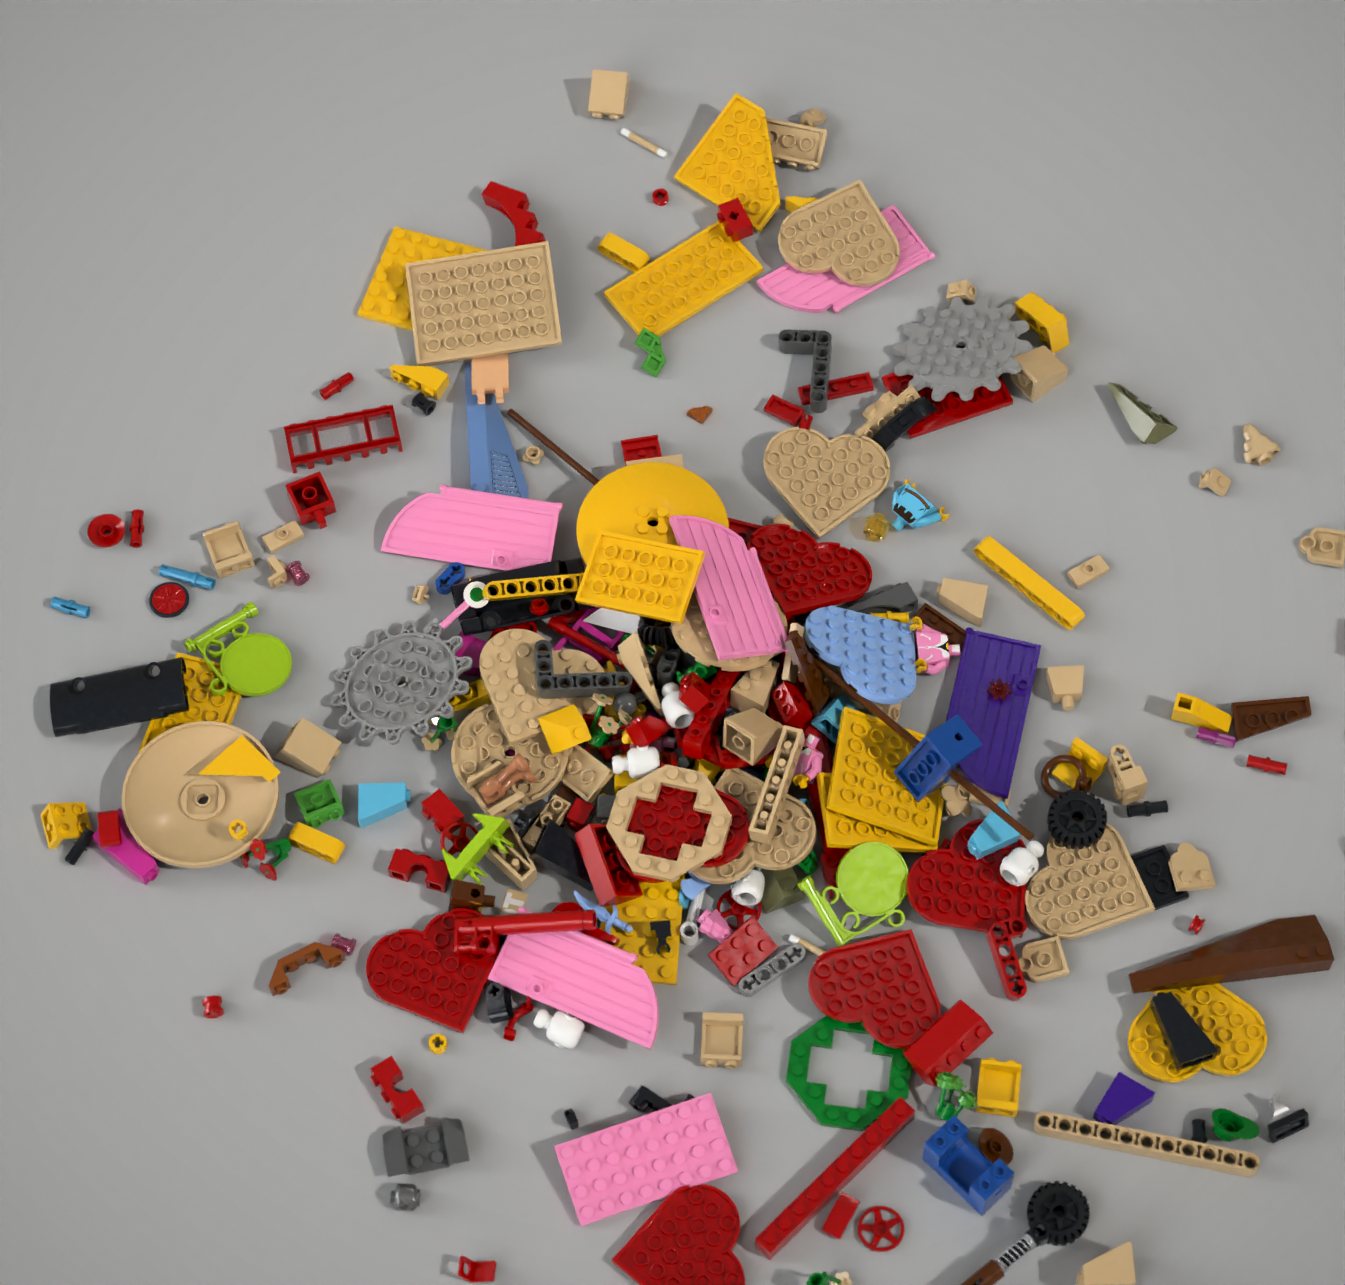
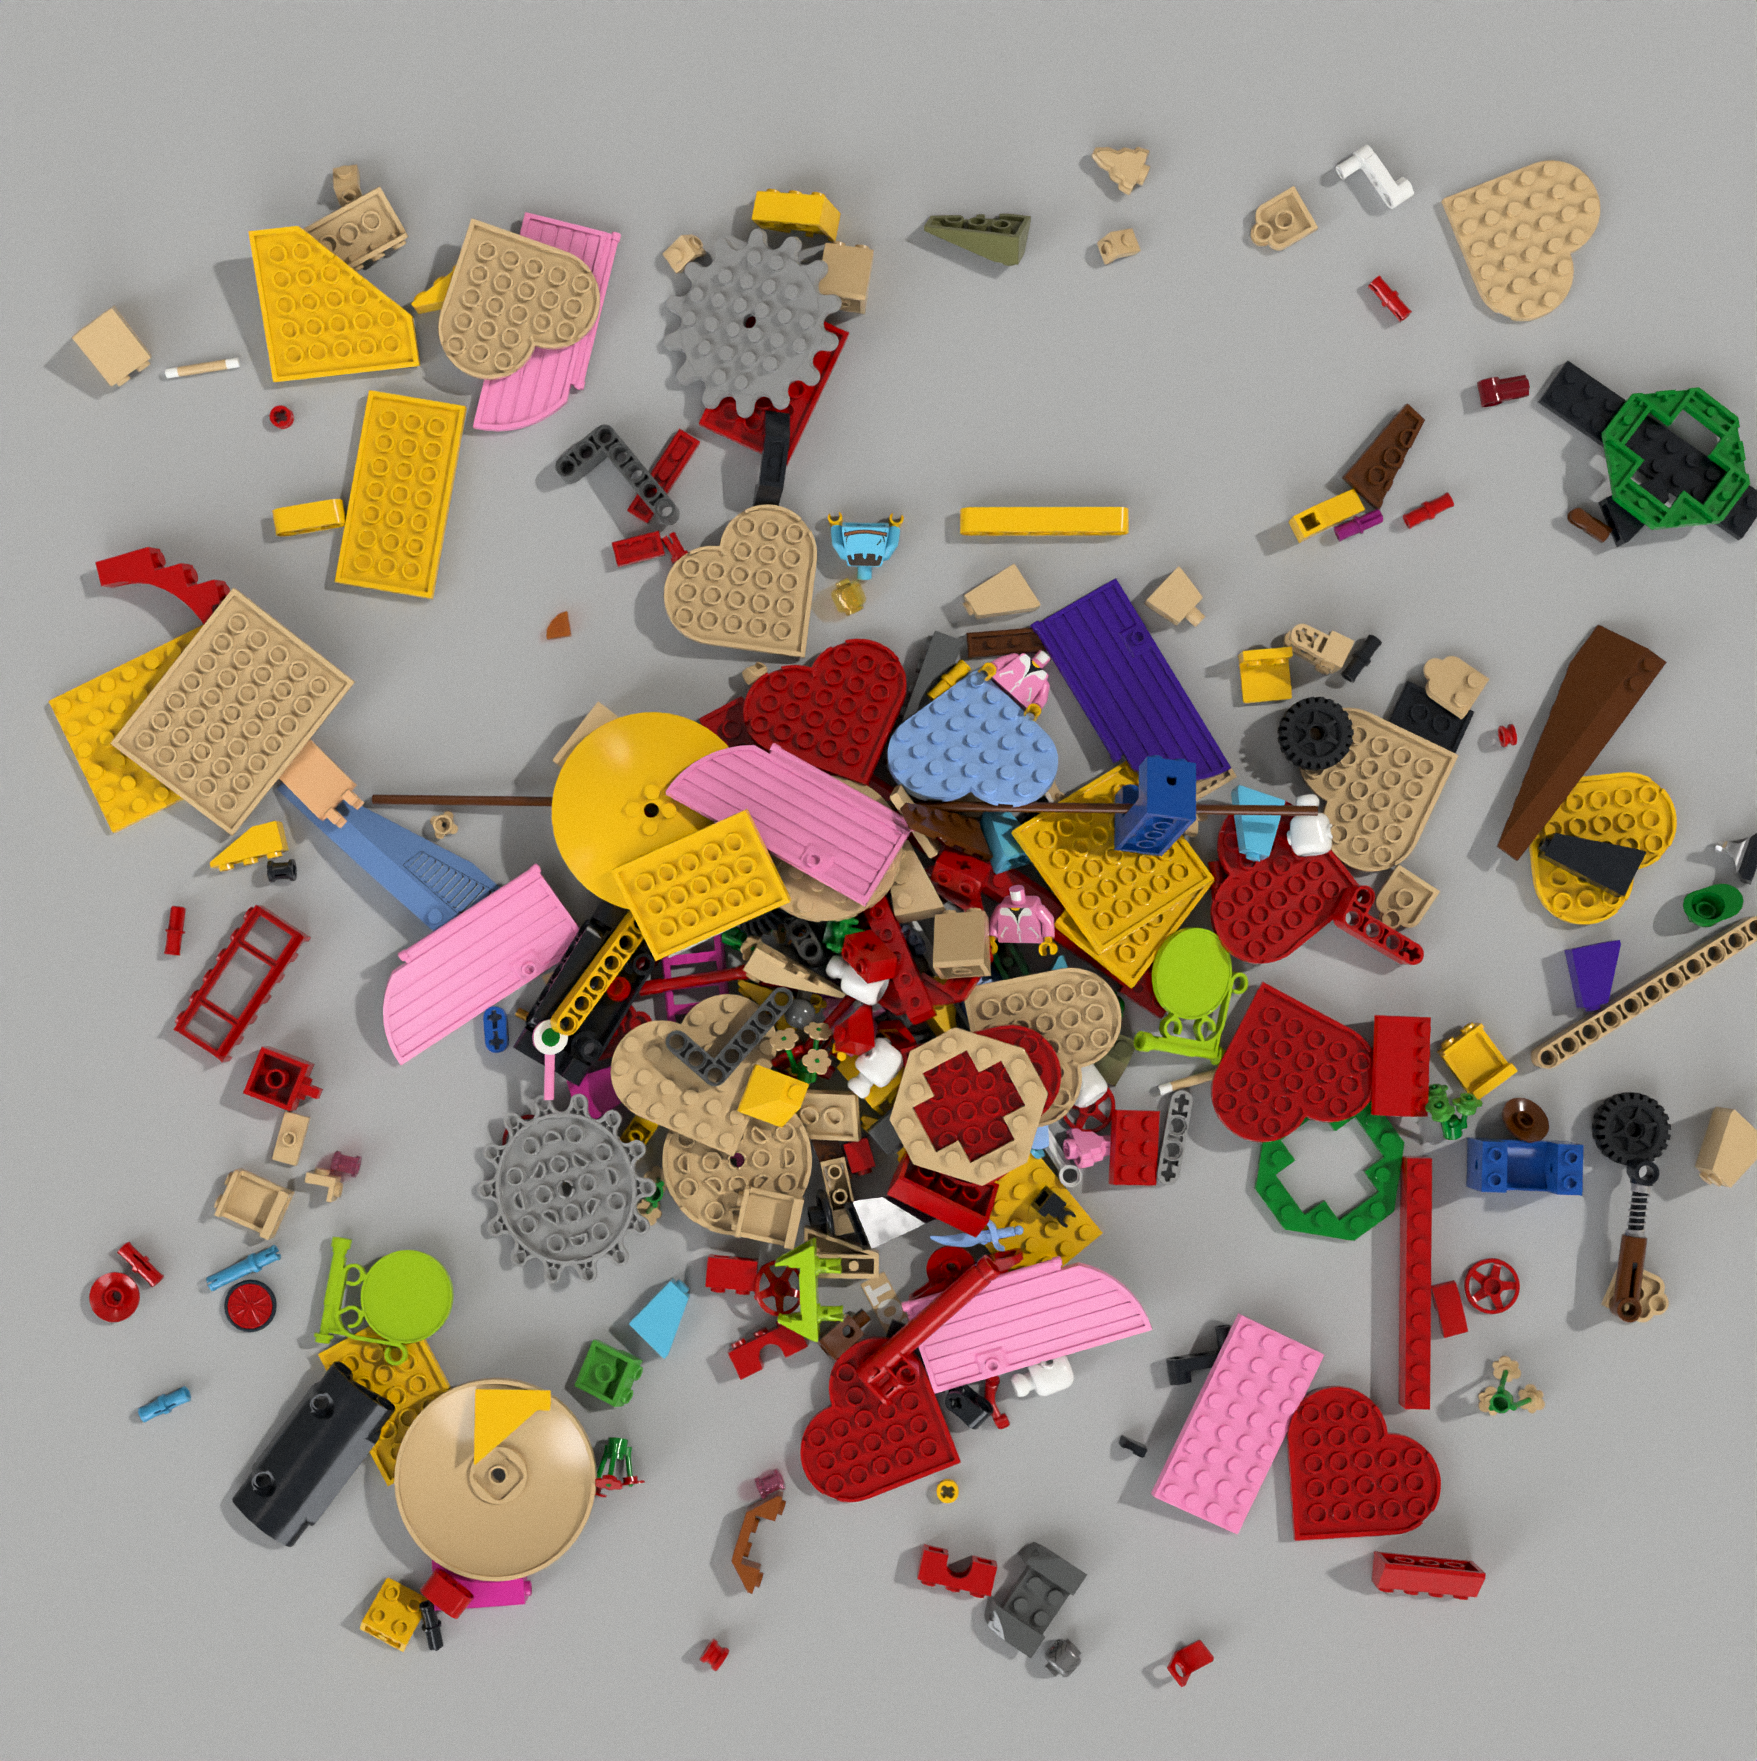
camera: 50 degrees left, 25 degrees up
(242, 833) = (579, 1483): yellow bush -> none
(308, 748) = (543, 1332): tan slope -> none
(316, 842) = (645, 1412): yellow beam -> none
(420, 594) = (484, 1073): tan piece -> none
(496, 786) = (767, 1214): nougat piece -> none
(641, 448) = (544, 722): red plate -> none
(651, 343) = (441, 597): bright green tile -> none
(721, 1039) = (1195, 1248): tan panel -> none
(735, 220) = (377, 370): red brick -> none
(776, 785) = (1036, 978): tan brick -> none
(884, 410) = (740, 462): tan bracket -> none
(999, 689) = (1123, 668): clear red plant -> none
(1082, 782) = (1284, 688): reddish brown piece -> none
(1088, 571) = (1086, 455): tan plate -> none
(1199, 1131) = (1683, 937): black pin -> none

